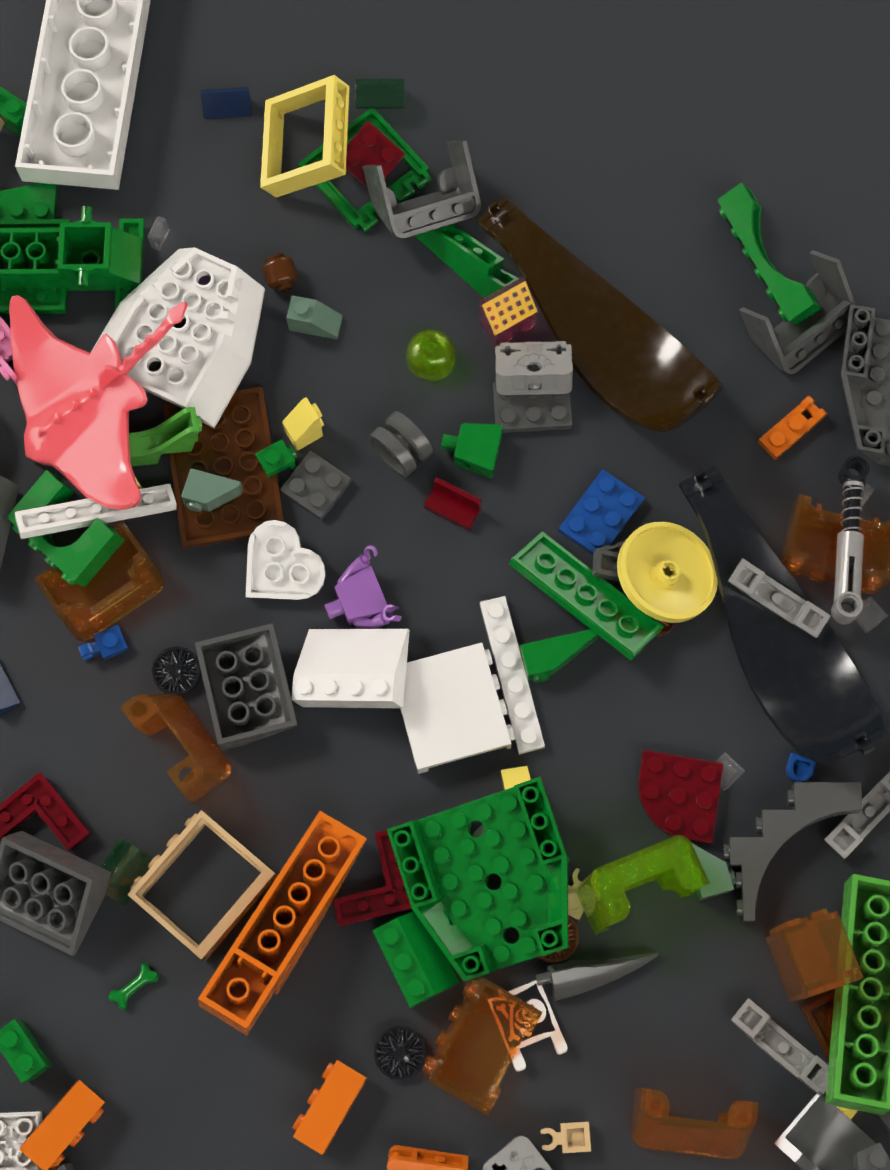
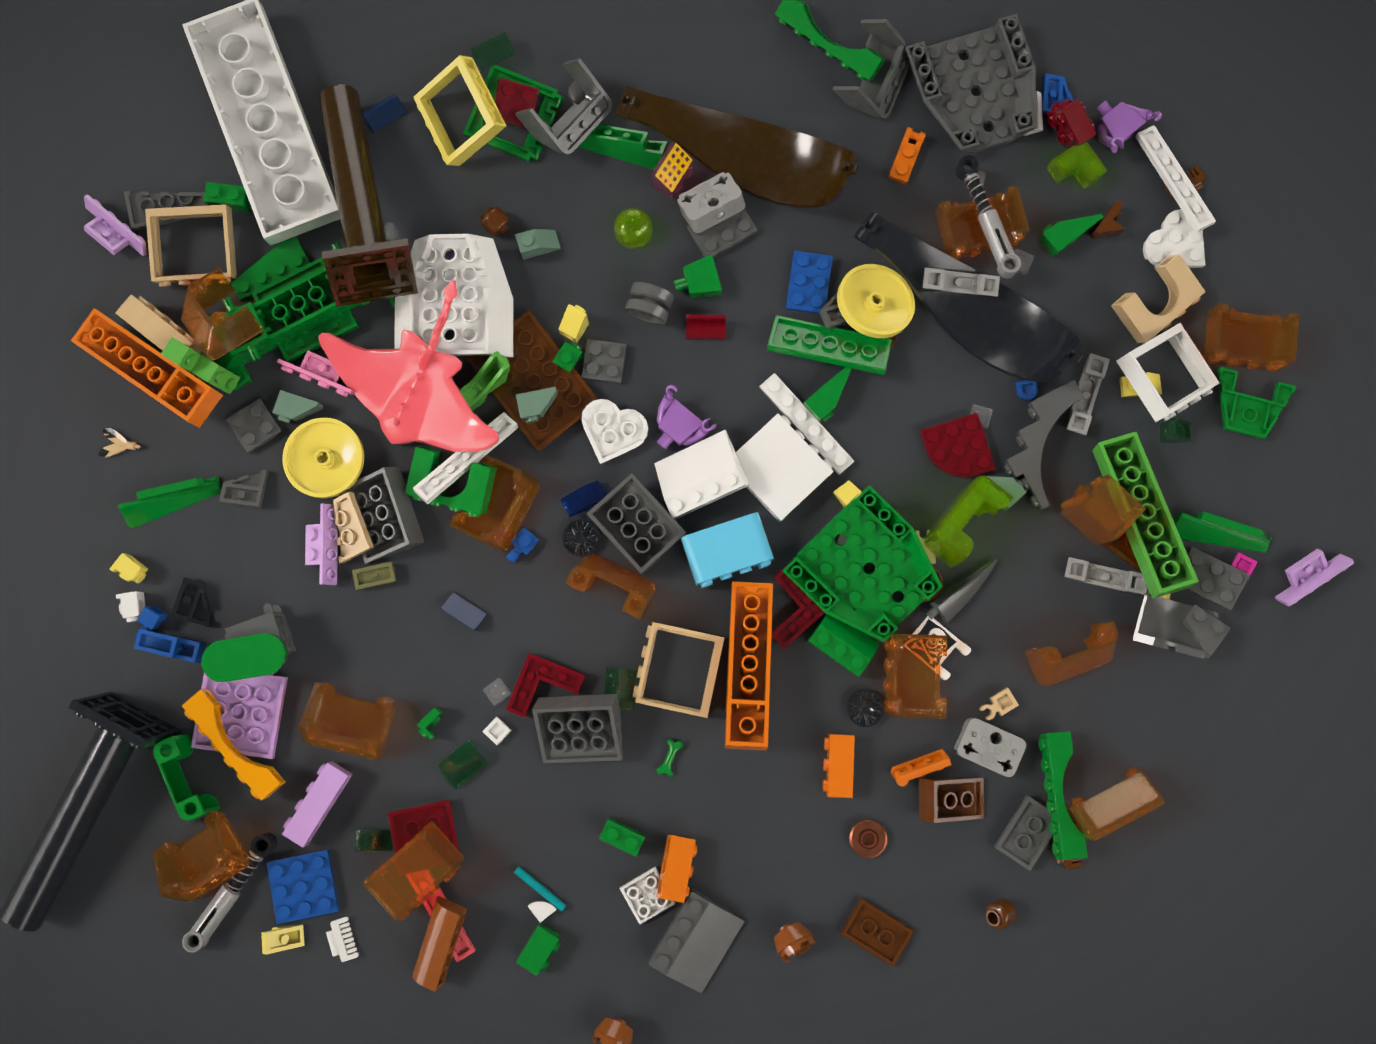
camera: 30 degrees left, 10 degrees up
(107, 241) = (368, 264): none -> dark brown piece
(203, 625) = (583, 498): none -> clear blue slope
(335, 770) = (727, 549): none -> medium azure windscreen

